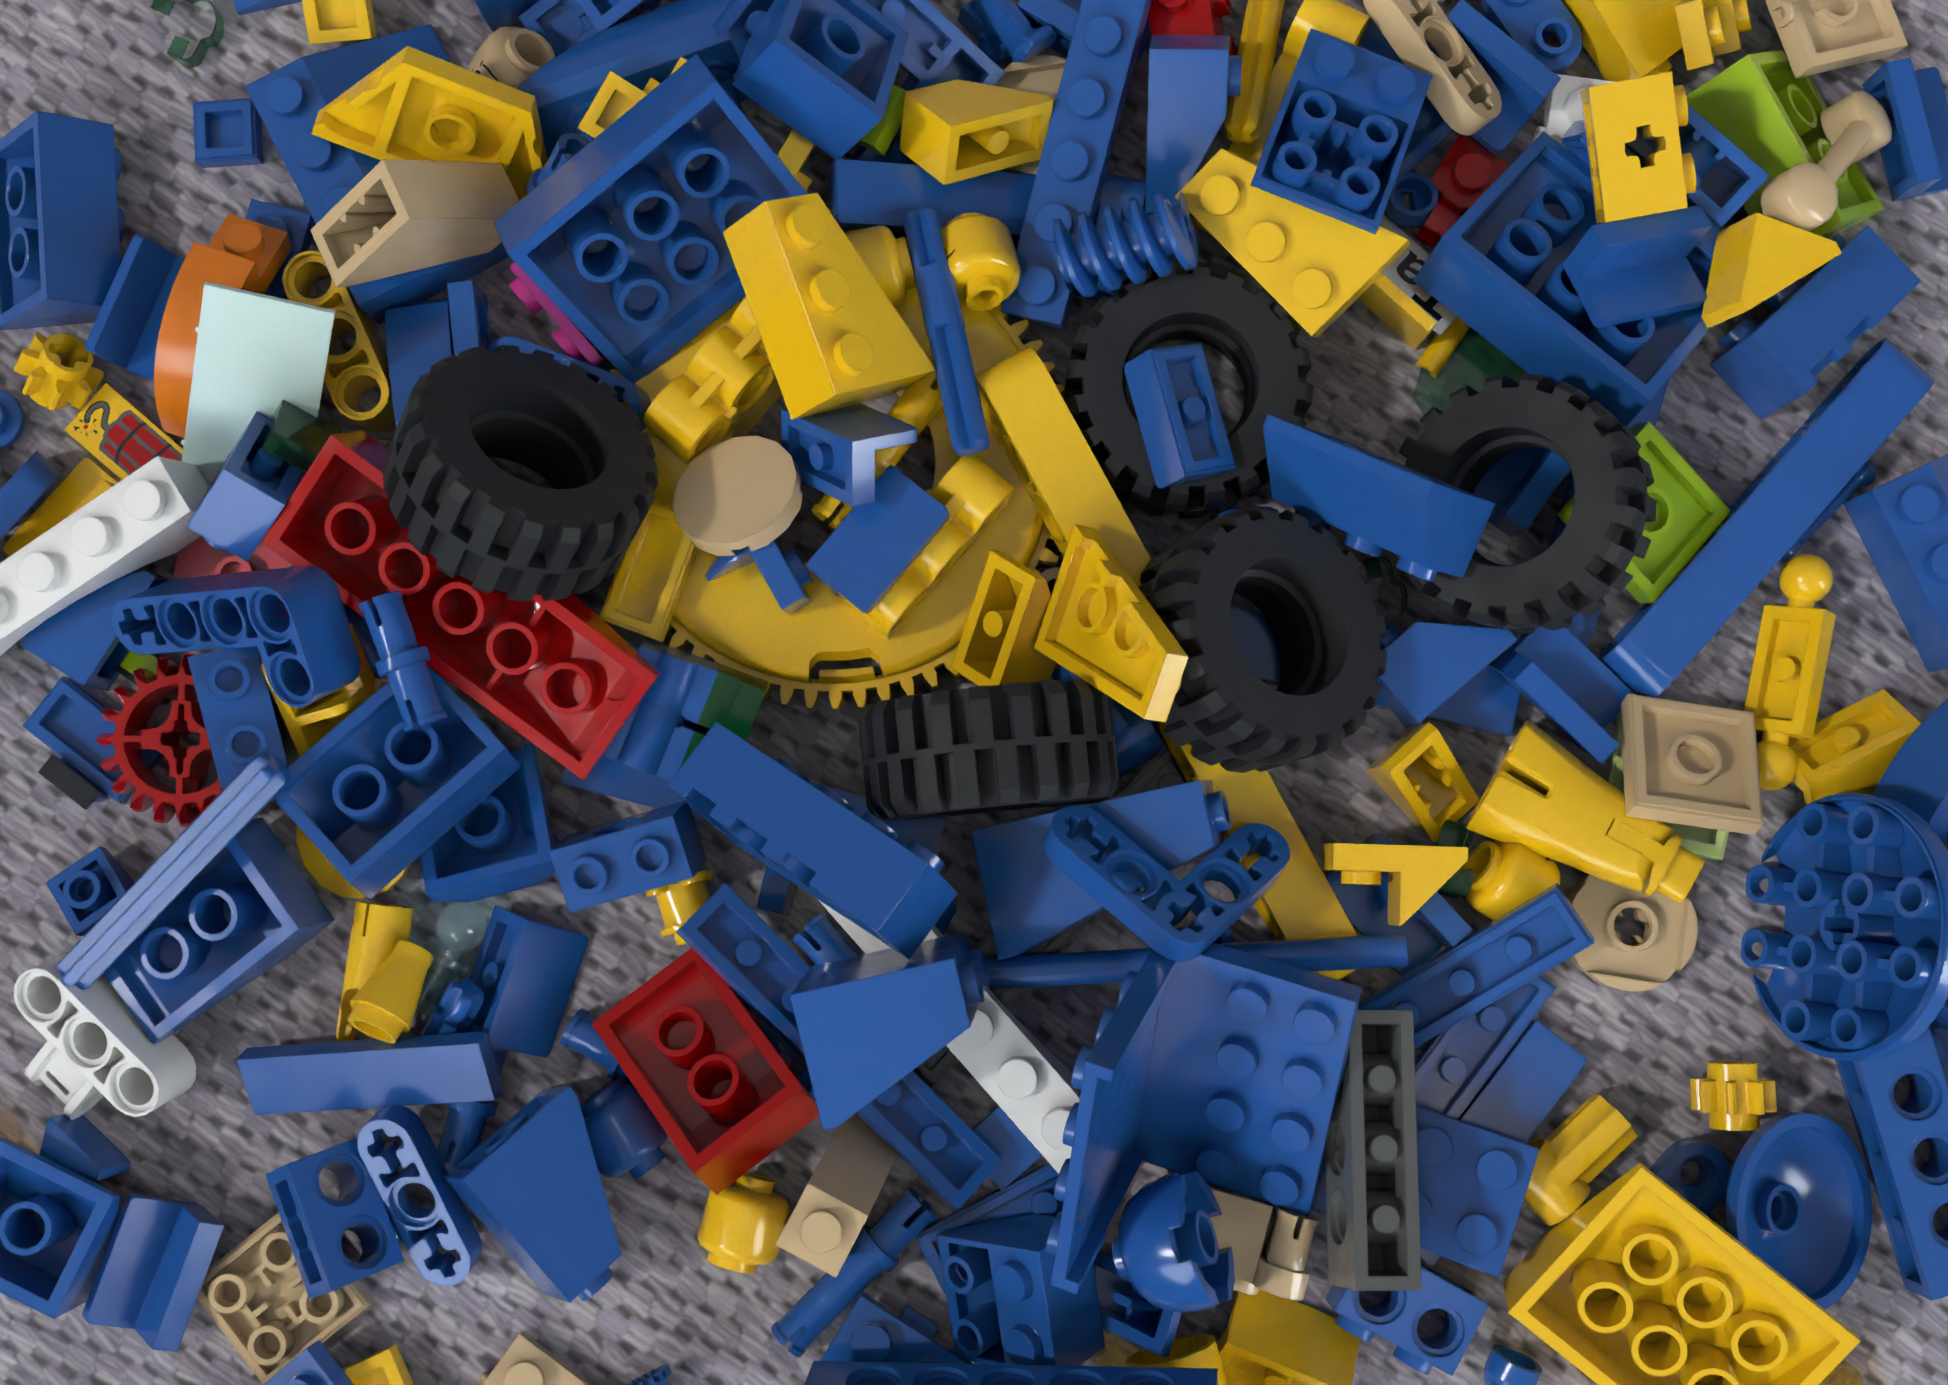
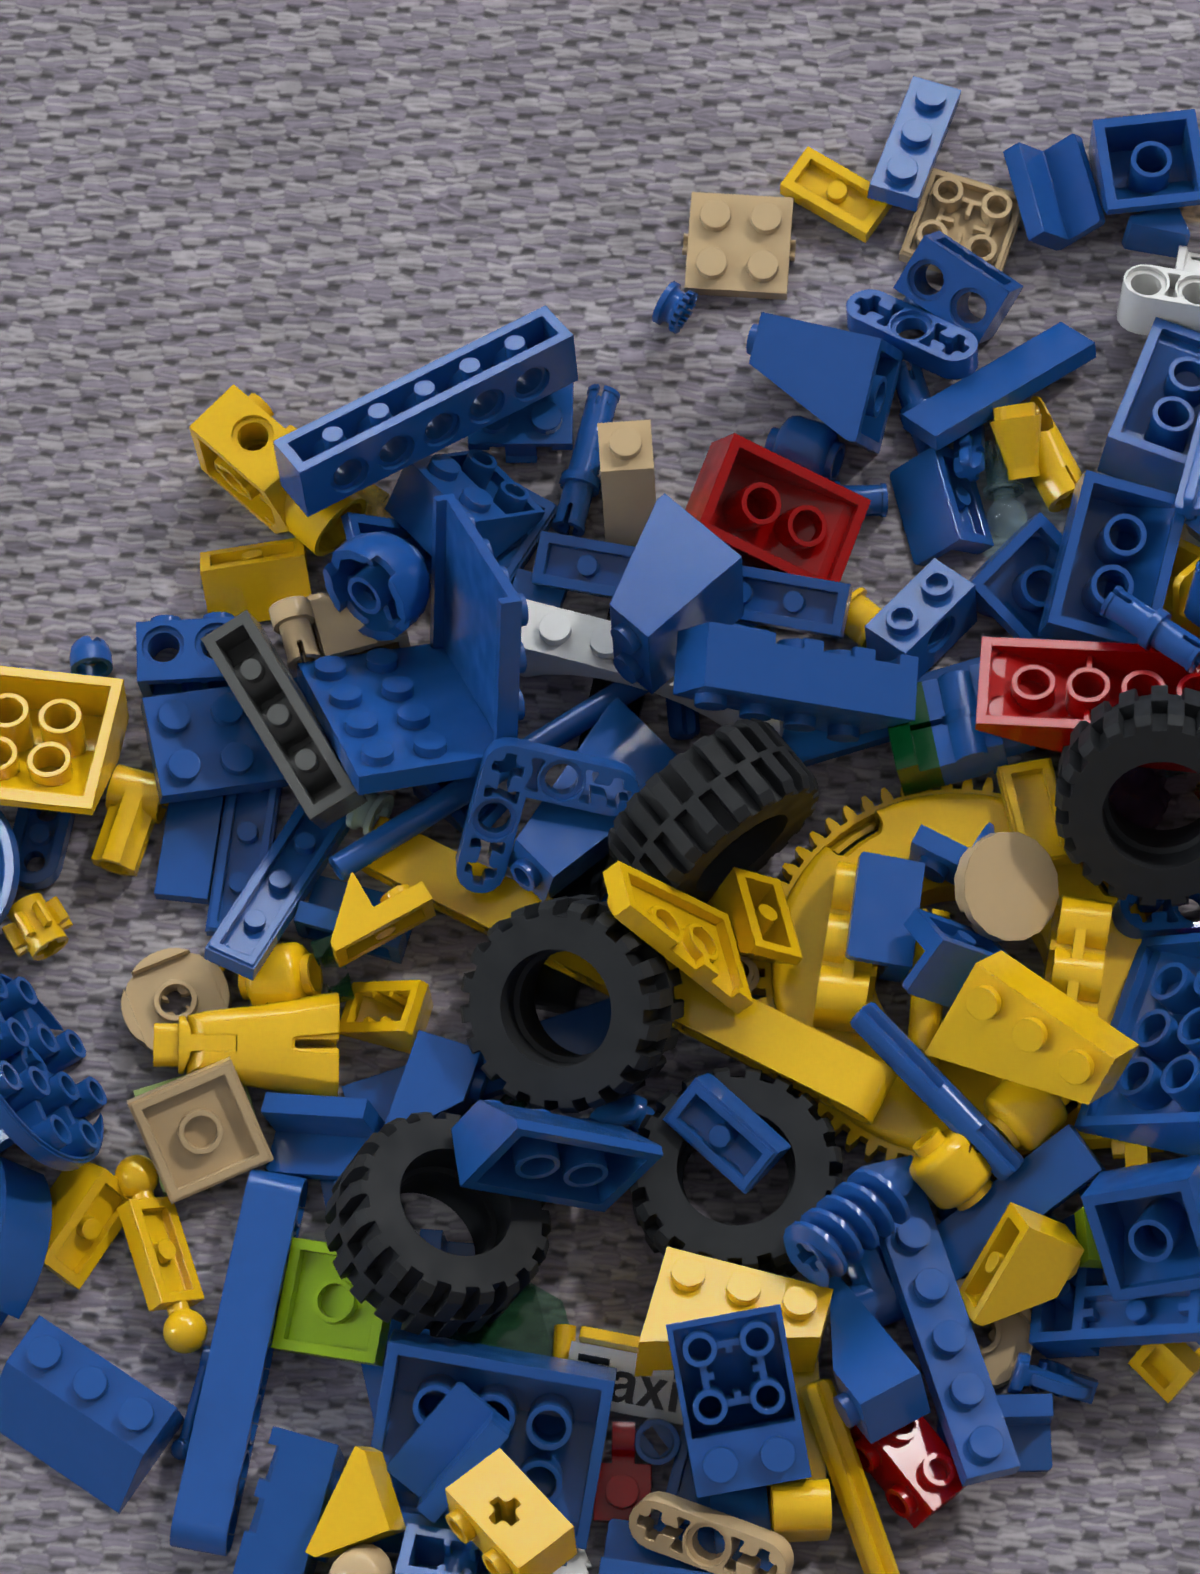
camera: 150 degrees right, 15 degrees down
(743, 1224) = (680, 443): yellow head -> none

